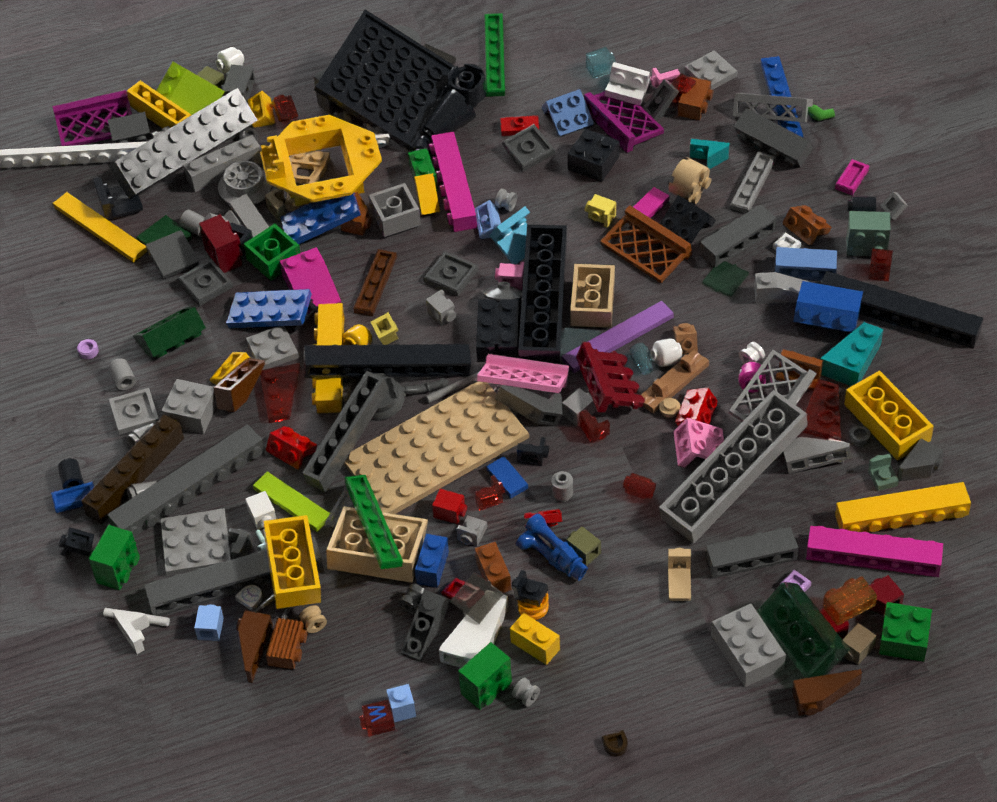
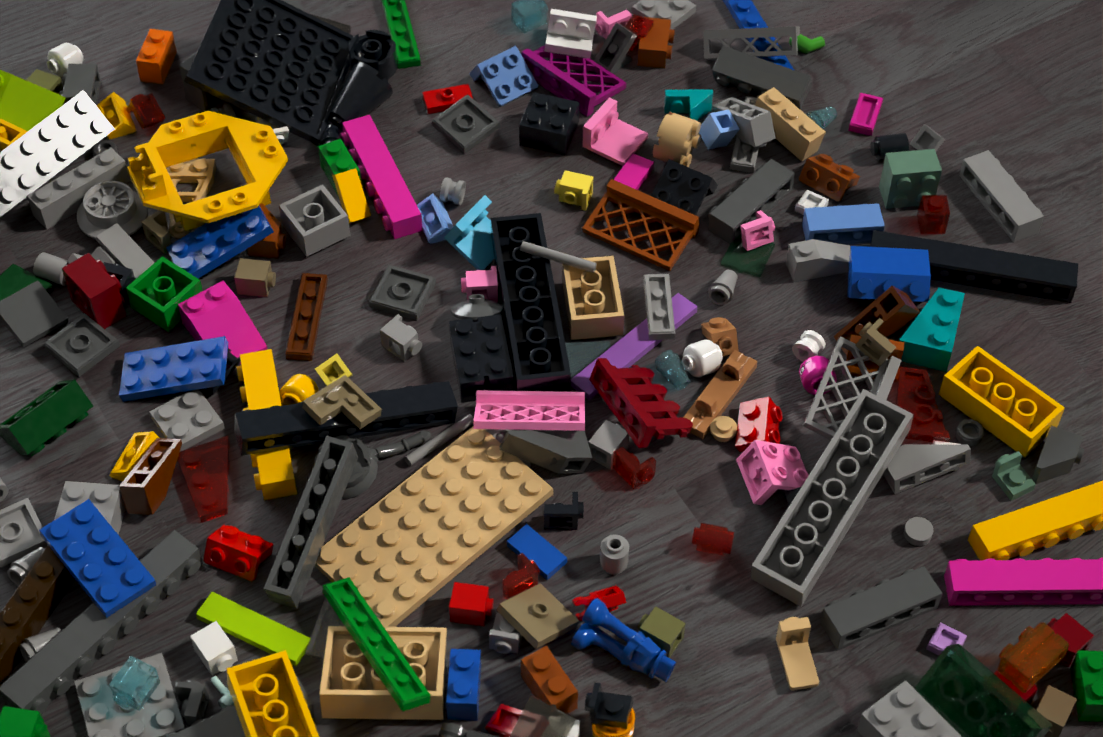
camera: 15 degrees left, 0 degrees up
(189, 435) = (97, 558): none -> blue plate
(200, 525) = (134, 683): none -> clear light blue brick
(300, 65) = (156, 56): none -> orange brick
(341, 248) = (254, 277): none -> dark tan brick
(384, 345) = (342, 397): none -> dark tan plate
(496, 521) = (538, 616): none -> dark tan plate
(571, 261) = (558, 256): none -> light grey bar
(639, 170) = (611, 136): none -> bright pink bracket
(643, 309) = (659, 306): none -> light grey tile
(697, 301) = (723, 287): none -> light grey cone
(725, 175) = (718, 129): none -> light blue brick
(735, 261) = (758, 231): none -> bright pink bracket
(749, 171) = (753, 122): none -> light grey slope
(782, 178) = (791, 125): none -> tan brick
(796, 358) = (874, 343): none -> dark tan bracket
(797, 502) = (918, 531): none -> light grey tile
(811, 177) = (823, 116): none -> clear light blue cone
(814, 338) = (892, 307): none -> reddish brown slope
(941, 256) = (1001, 196): none -> light grey brick

